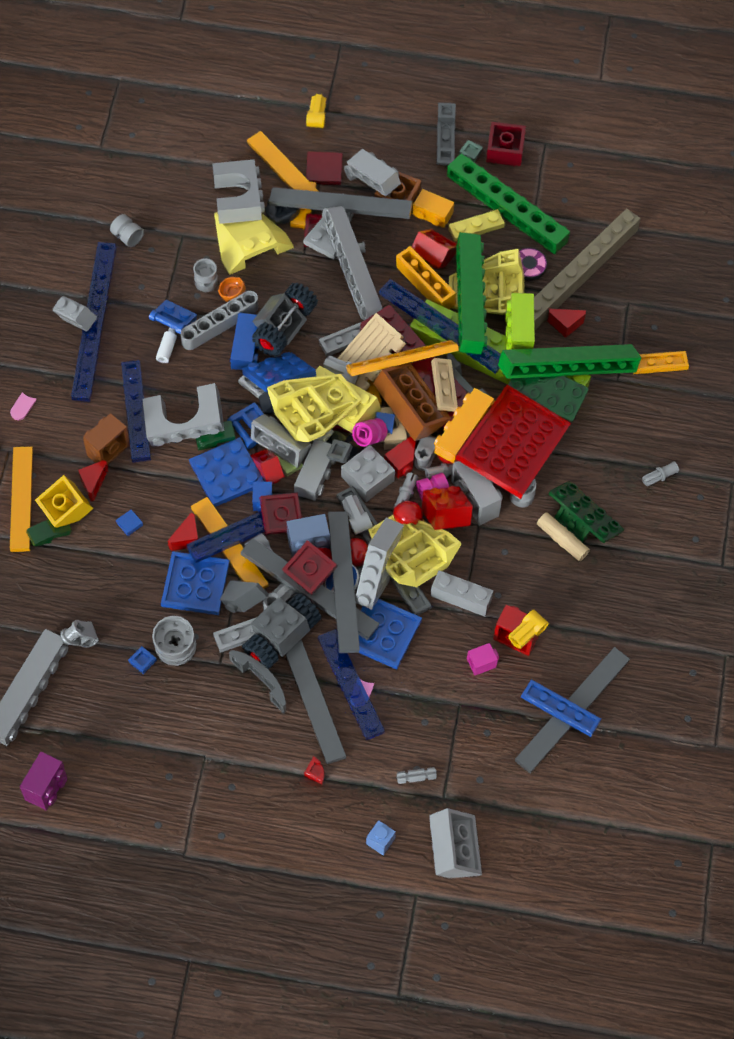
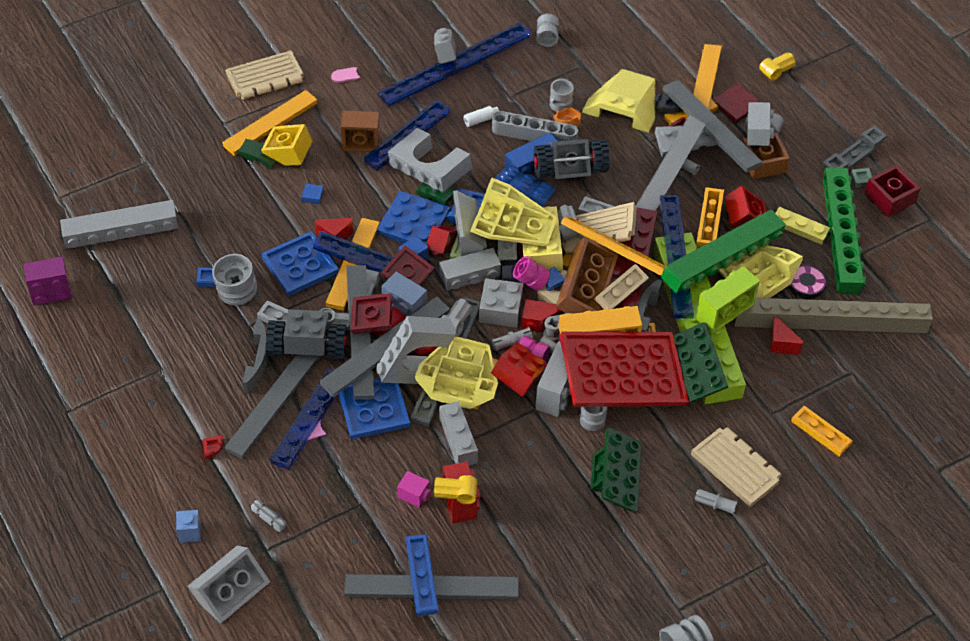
camera: 50 degrees right, 10 degrees down
(80, 634) = (191, 224): light grey piece -> none
(93, 477) = (325, 148): red slope -> none
(173, 316) = (510, 99): blue plate -> none
(242, 595) = (312, 295): dark grey slope -> none
(243, 207) = (648, 77): light grey arch -> none
(339, 451) = (495, 268): dark grey tile -> none
(408, 512) = (489, 347): red hair -> none
(433, 208) = (780, 187): light orange brick -> none
(563, 537) = (582, 470): tan axle -> none
(569, 361) = (738, 356): green brick -> none
(641, 438) = (735, 466): none -> tan hinge

